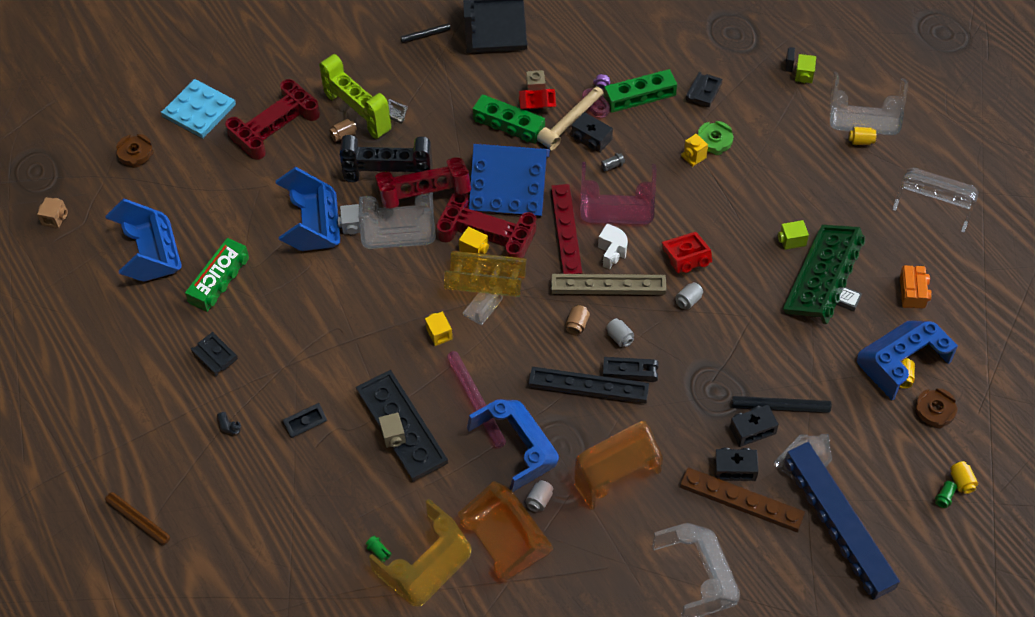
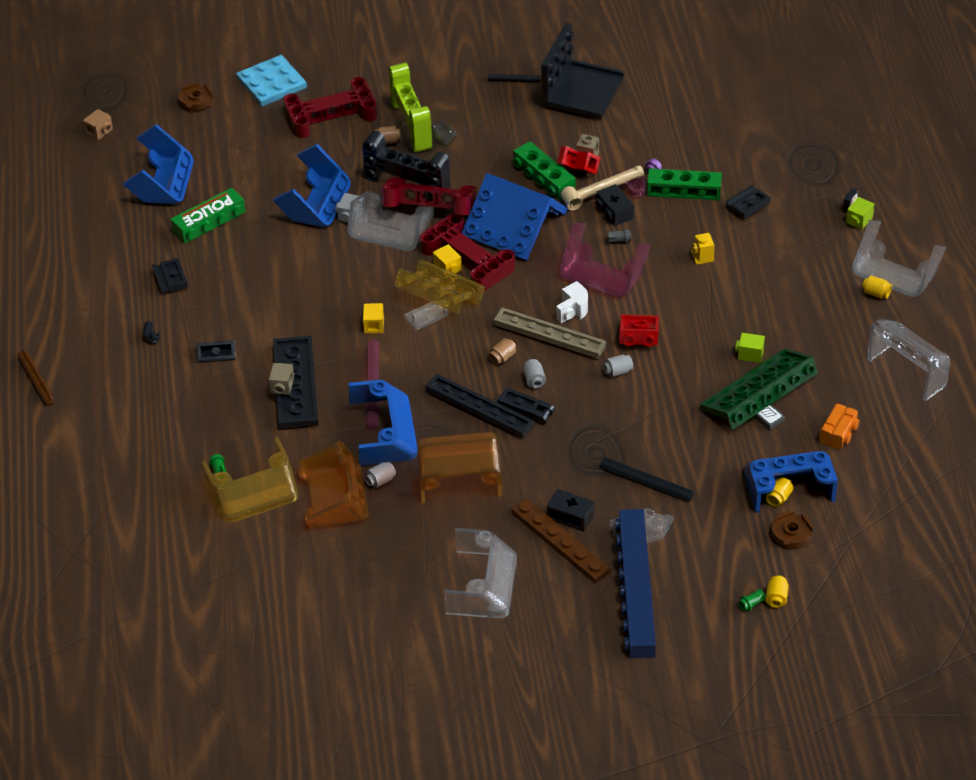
camera: 25 degrees right, 10 degrees down
(566, 229) = (541, 277): dark red plate -> none
(720, 129) = (731, 253): bright green plate -> none
(753, 425) = (607, 485): black brick -> none

